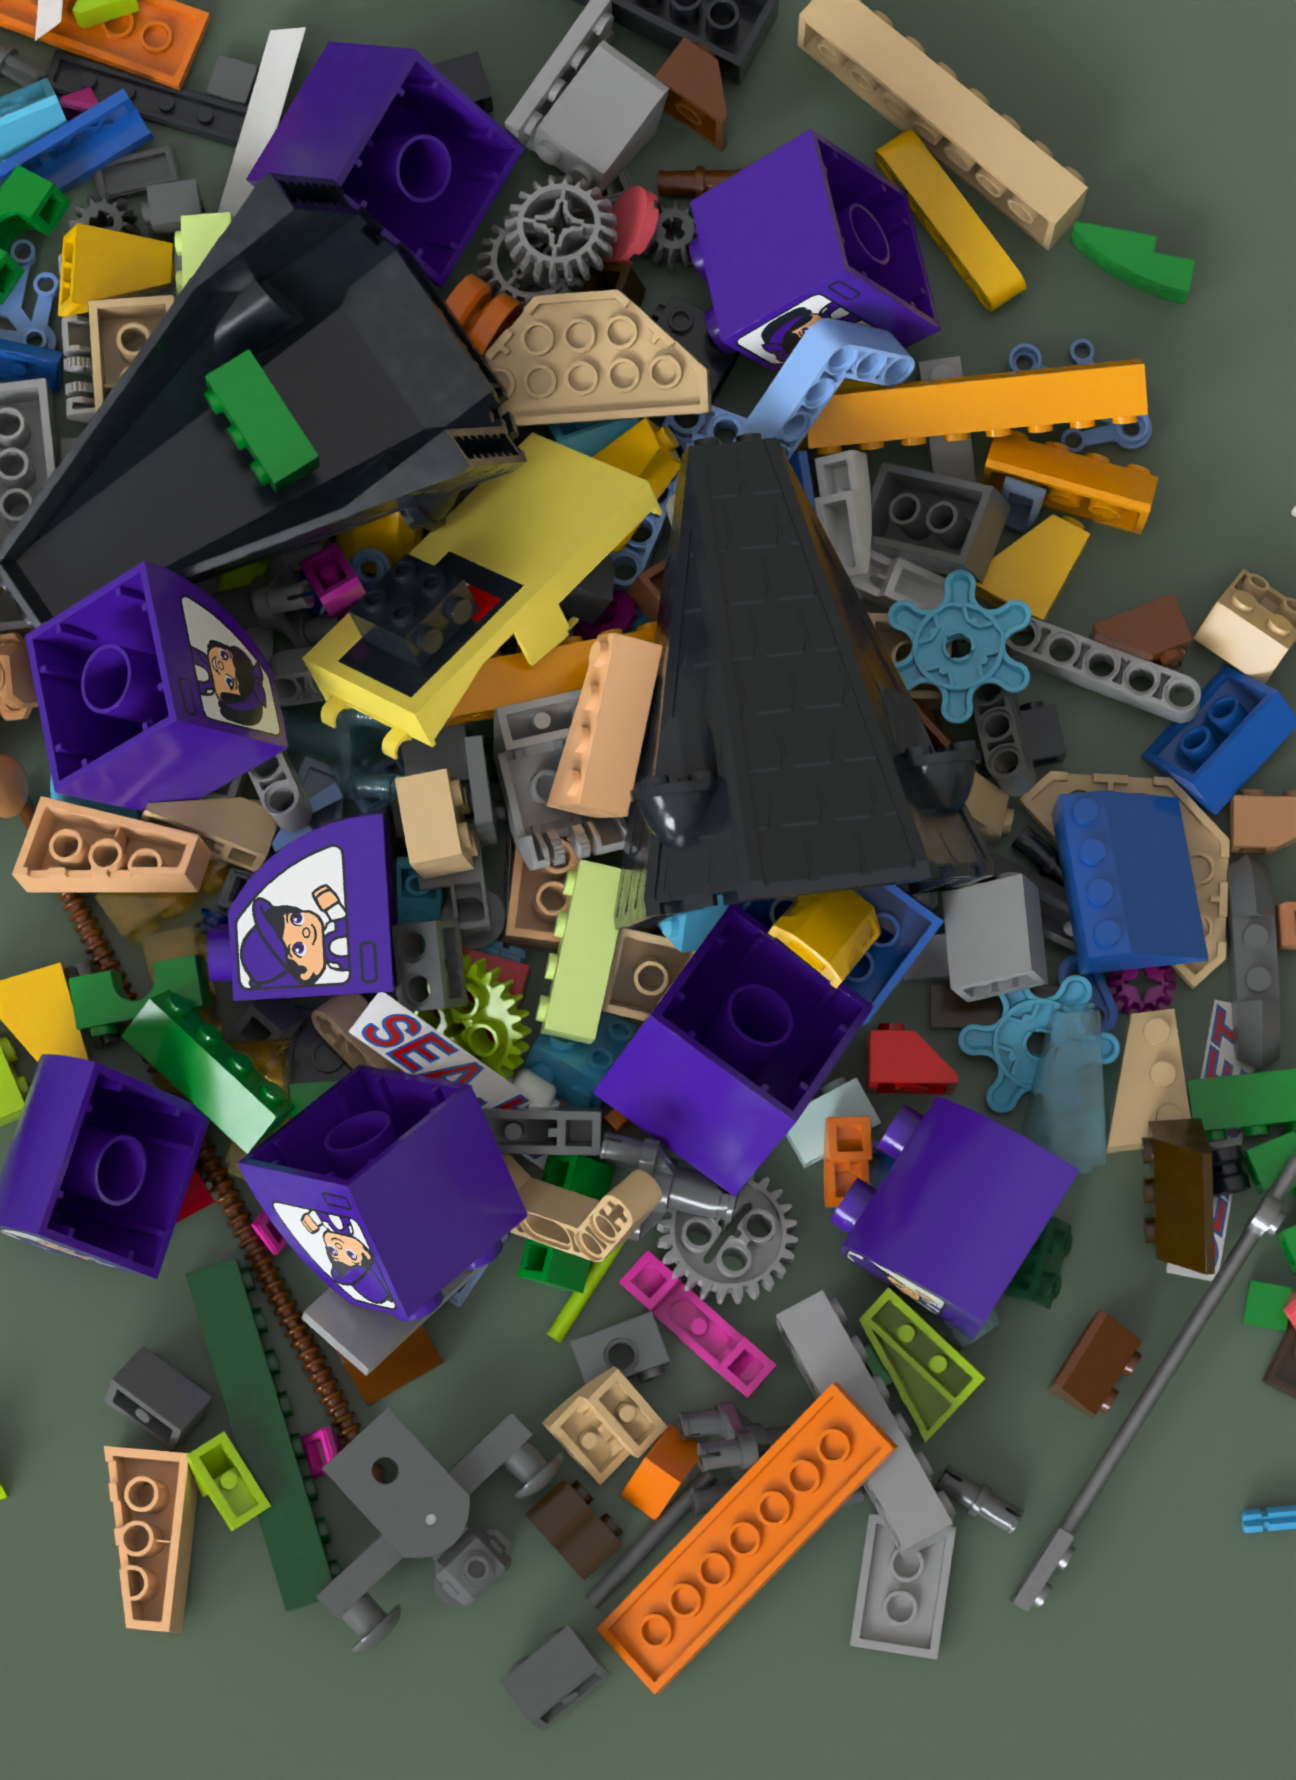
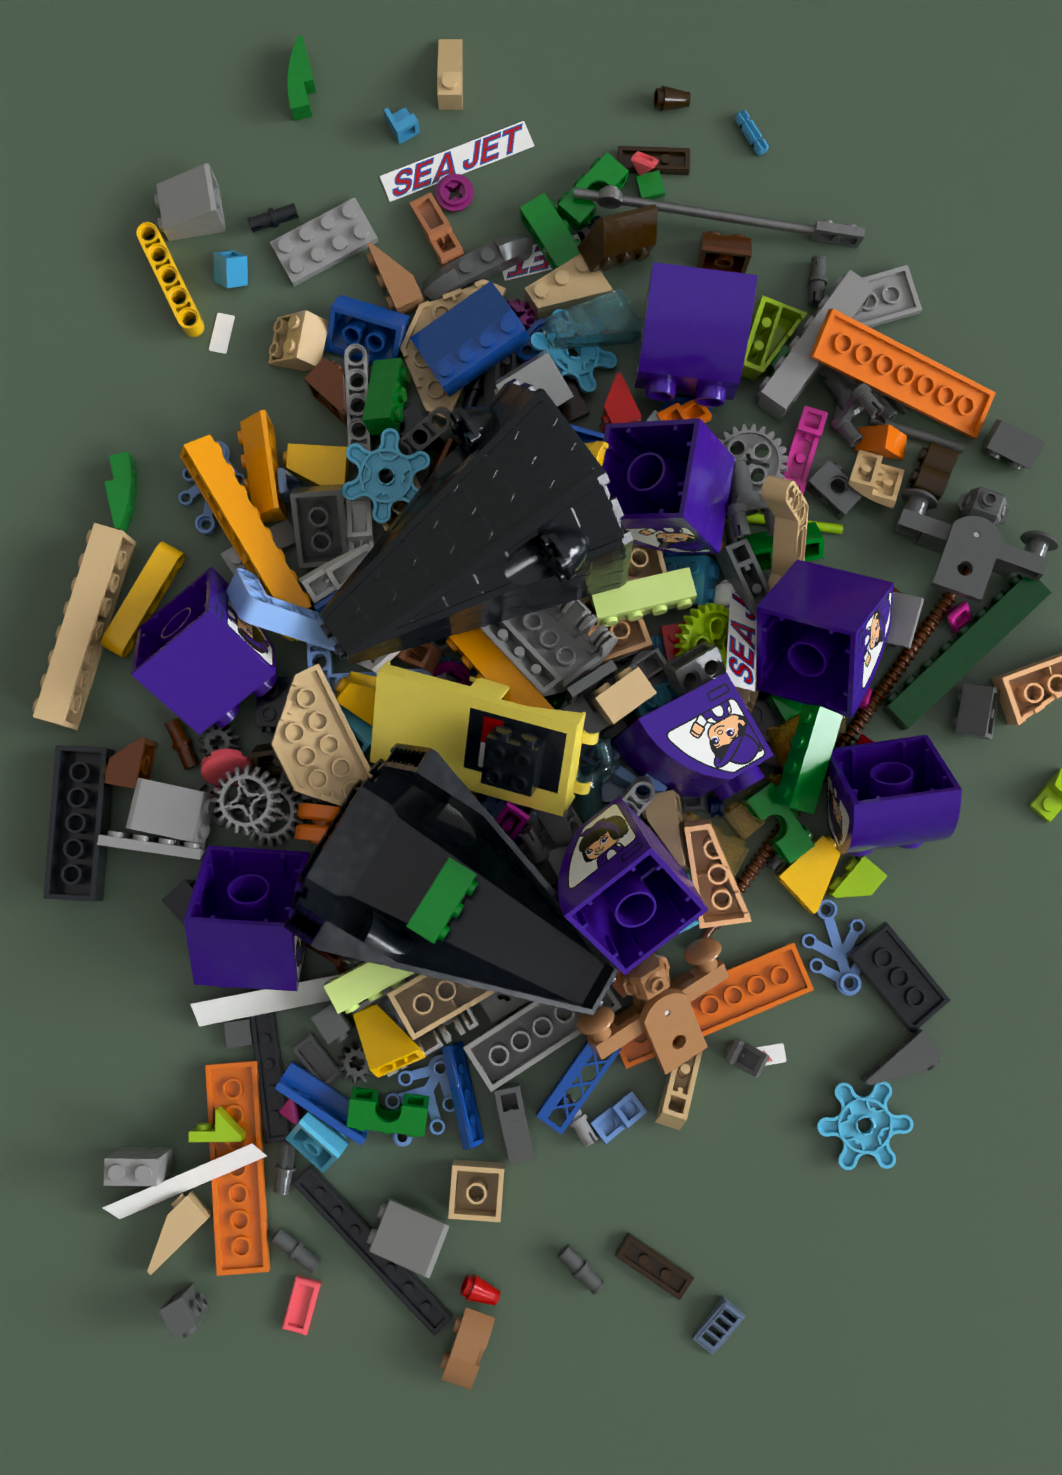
camera: 120 degrees left, 5 degrees up
(227, 1481) = (1006, 650): lime slope -> none
(607, 729) = (527, 628): light nougat wedge -> none
(1095, 714) = (386, 395): none -> green brick

